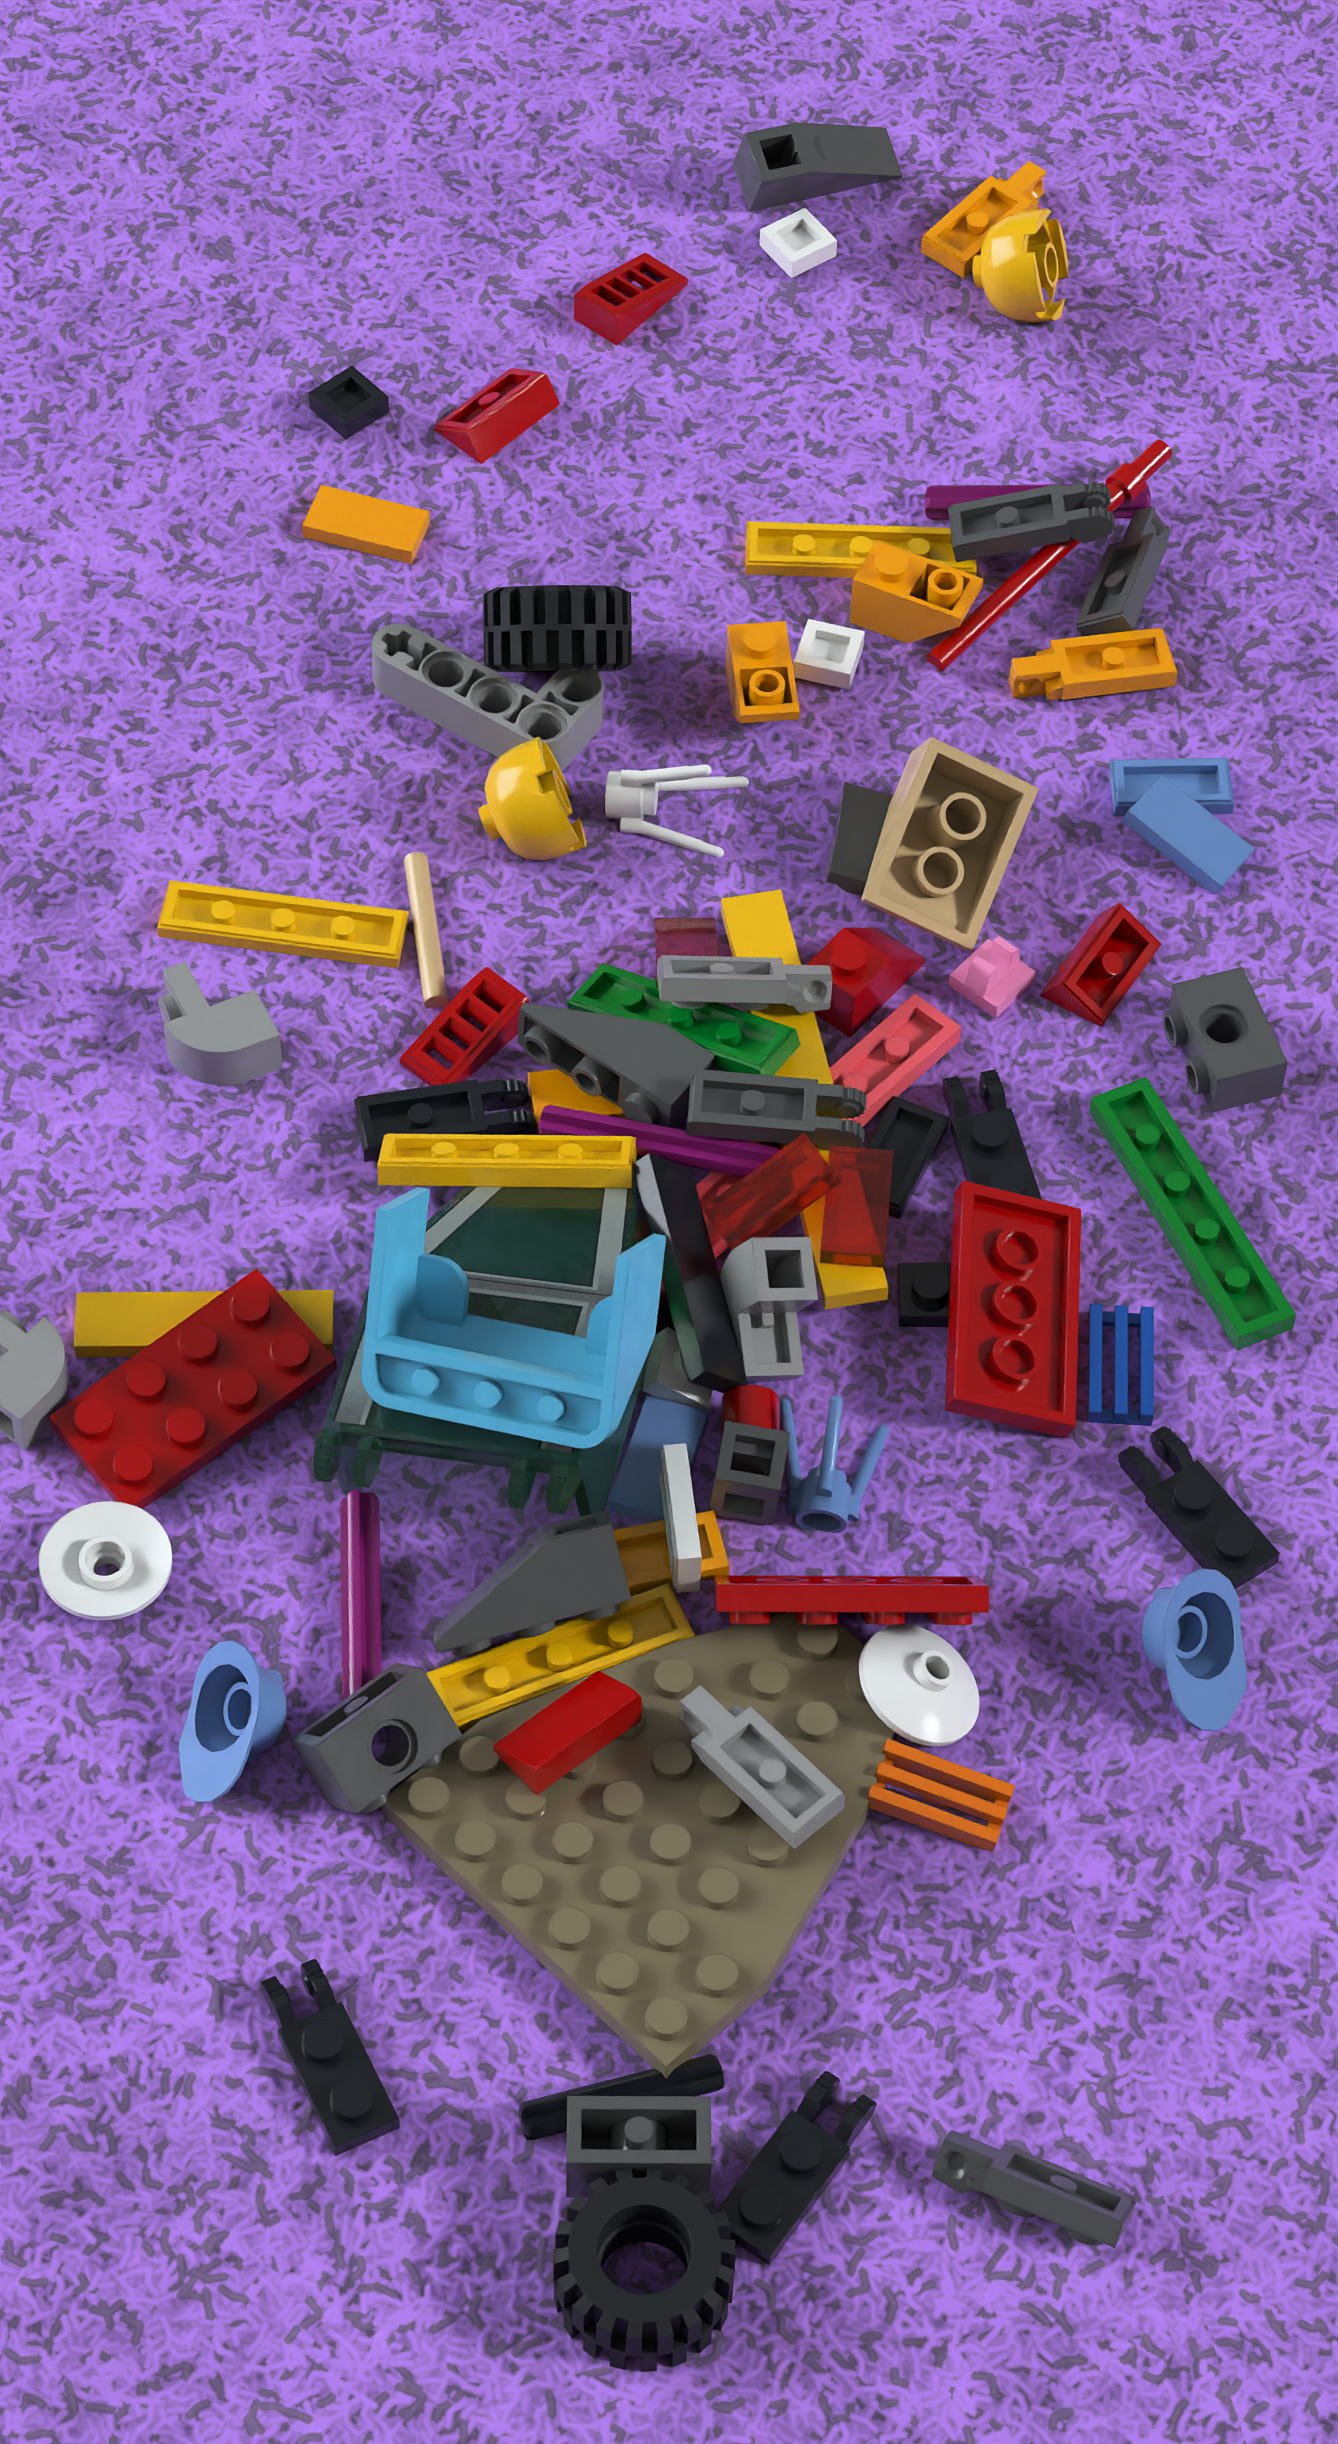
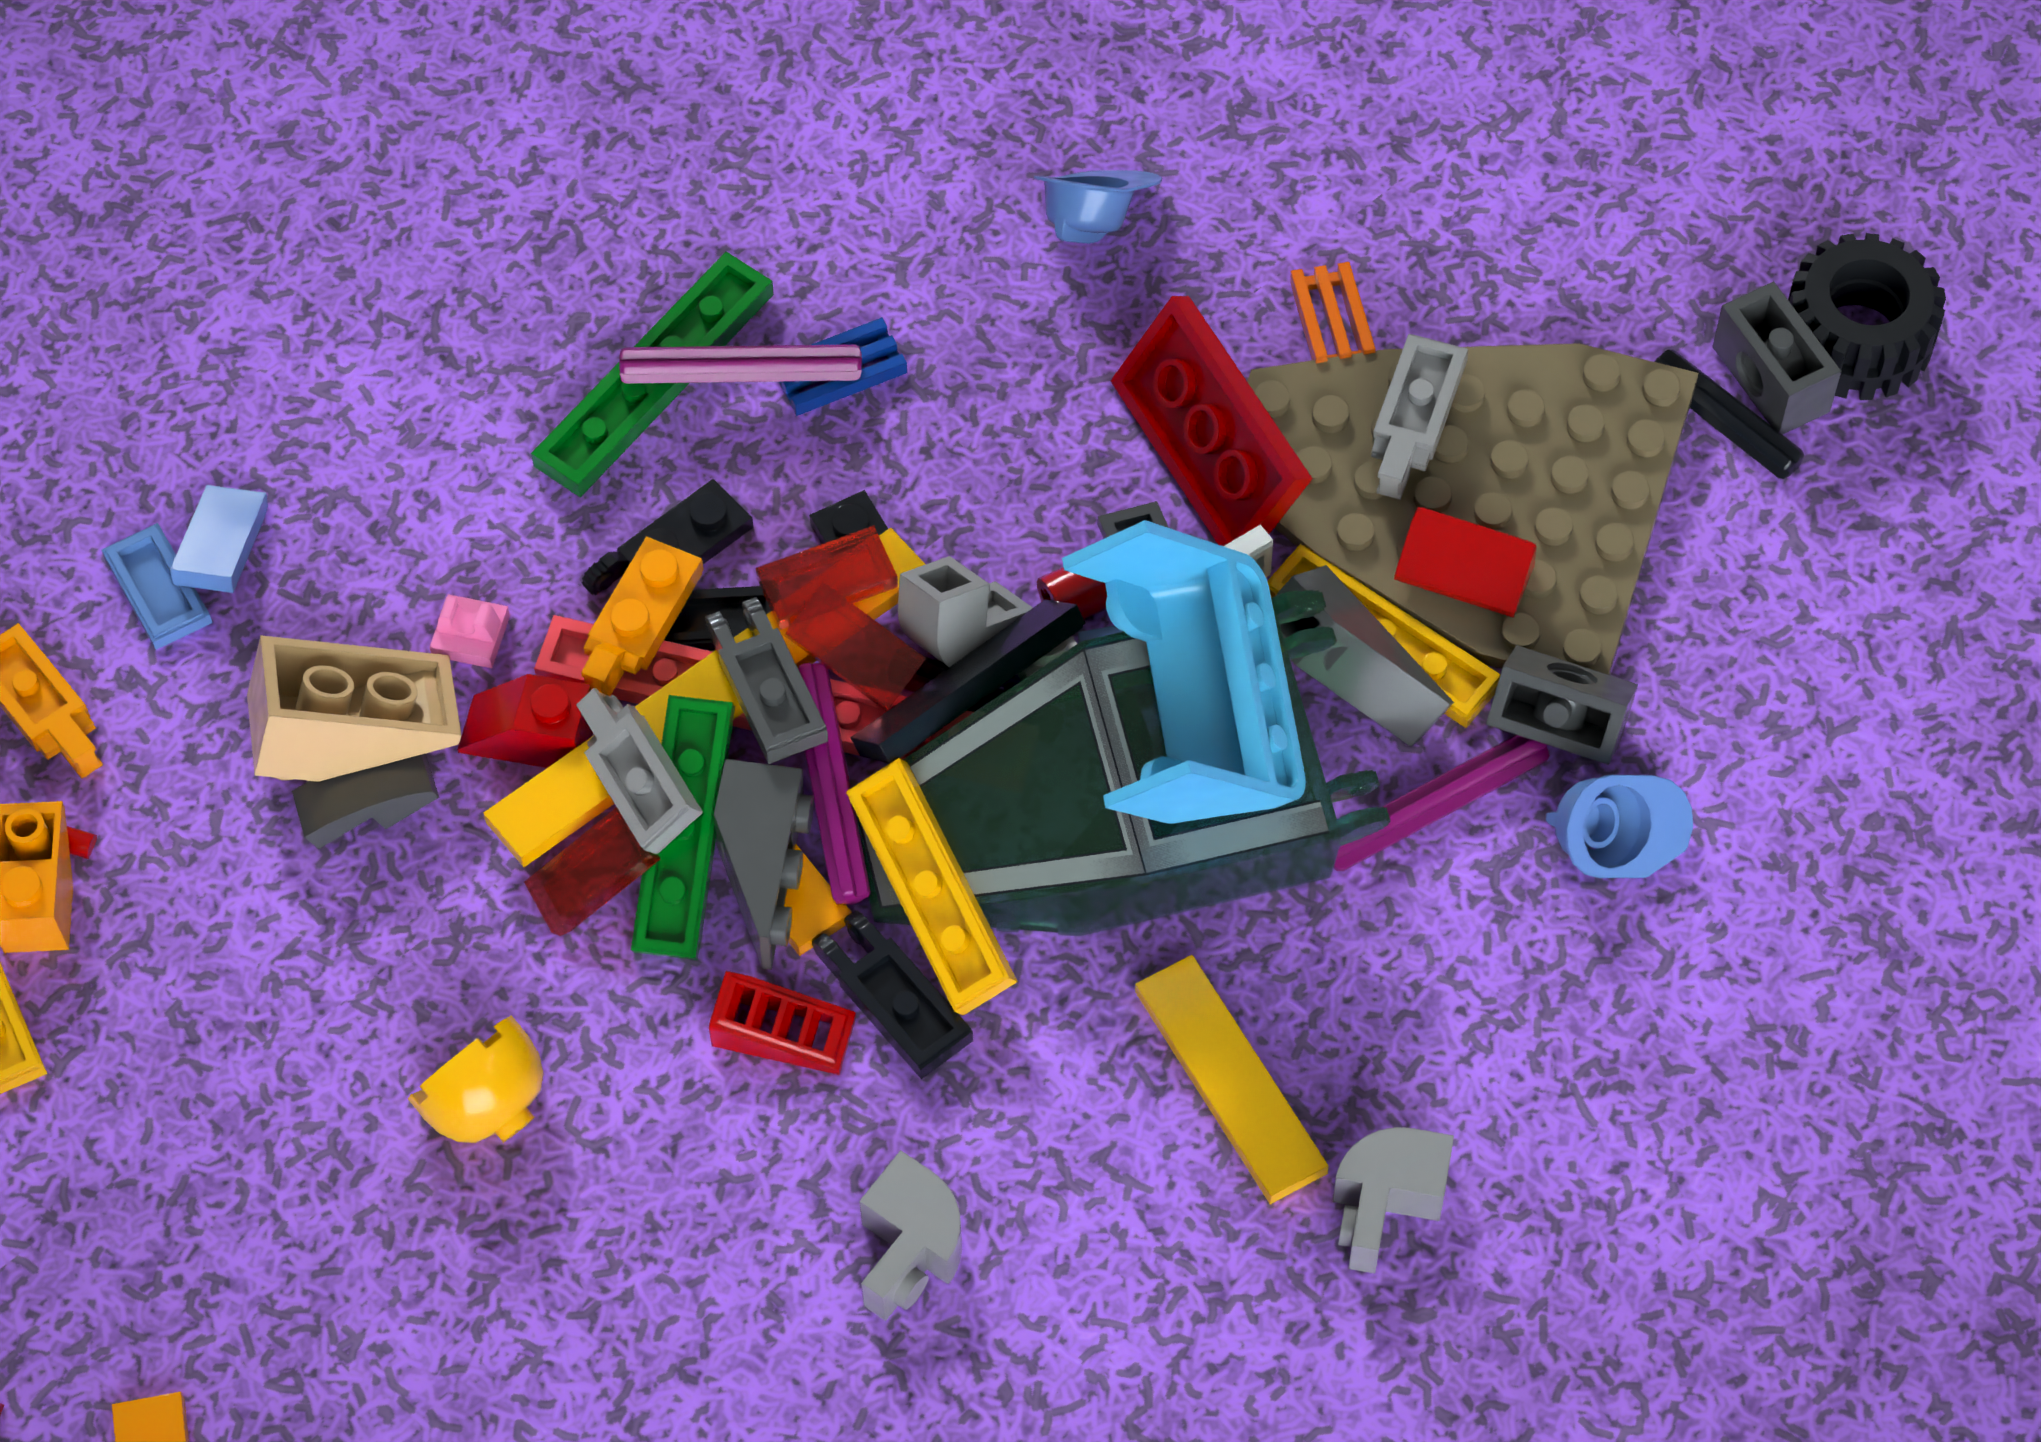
camera: 115 degrees left, 5 degrees up
(99, 1536) = (1533, 982): white dish -> none
(193, 1392) = (1315, 1034): red plate -> none
(283, 924) = (735, 1262): yellow tile -> none
(331, 2064) = (1841, 615): black hinge -> none
(425, 930) = (671, 1129): tan bar -> none
(482, 702) = (354, 1220): light grey beam -> none
(557, 628) = (261, 1146): black tyre -> none
(635, 794) = (411, 1017): white plant -> none
(760, 673) = (217, 957): light orange slope -> none
(792, 2171) = (1693, 276): black hinge -> none
(823, 1497) = (1094, 504): medium blue plant -> none
(828, 654) = (134, 933): white plate -> none
(916, 1074) = (639, 613): none -> light orange hinge
(919, 1685) = (1266, 357): white dish -> none
(1013, 1310) = (842, 447): red plate -> none
(1035, 2187) = (1615, 118): dark grey hinge -> none
(1102, 965) = (406, 557): red slope -> none
(1147, 1263) = (740, 363): none -> axle
(1199, 1510) = (954, 255): black hinge -> none
(1225, 1040) = (462, 385): dark grey brick -> none

